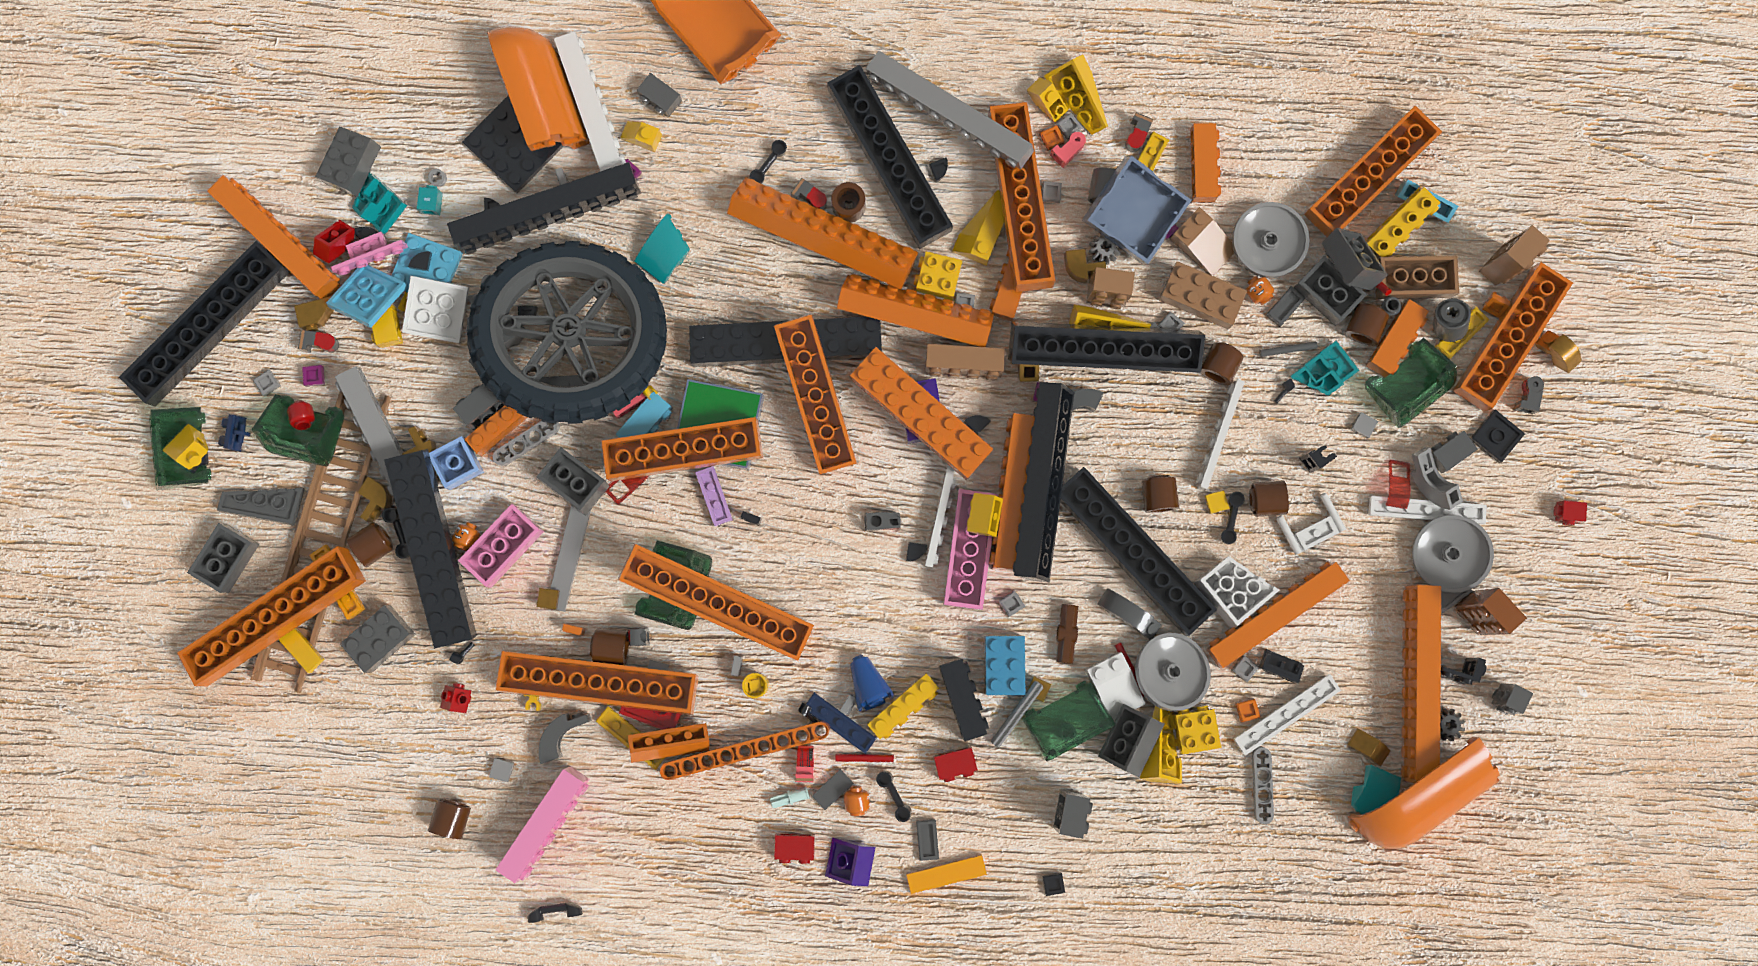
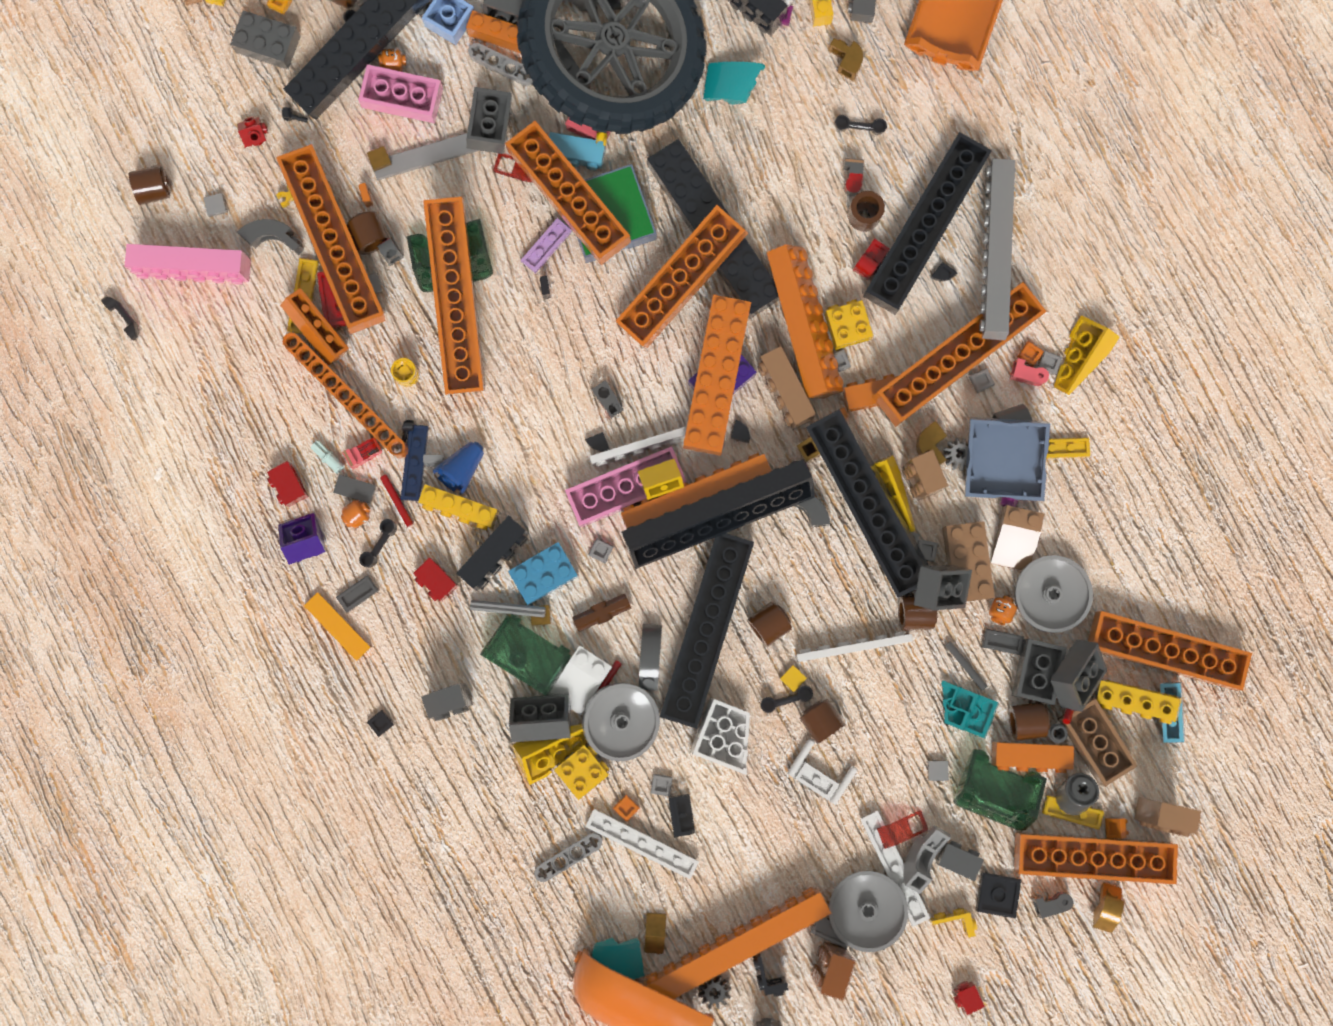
camera: 55 degrees right, 0 degrees up
(703, 134) = (851, 56): none -> pearl gold brick
(737, 664) = (413, 347): light grey tile -> none
(822, 232) = (826, 204): orange brick -> none
(891, 222) = (871, 259): none -> red plate
(982, 232) = (908, 341): yellow wedge -> none
(1047, 99) = (1061, 330): yellow slope -> none
(1138, 136) = (1082, 426): leg -> none
(1204, 162) = (1088, 497): orange brick -> none
(1217, 328) = (942, 587): none -> dark grey brick
(1278, 614) = (724, 786): orange brick -> none
(1288, 385) = (932, 684): black hand -> none
(1314, 460) = (879, 741): black hinge -> none
(1508, 475) = (968, 923): none -> yellow bracket

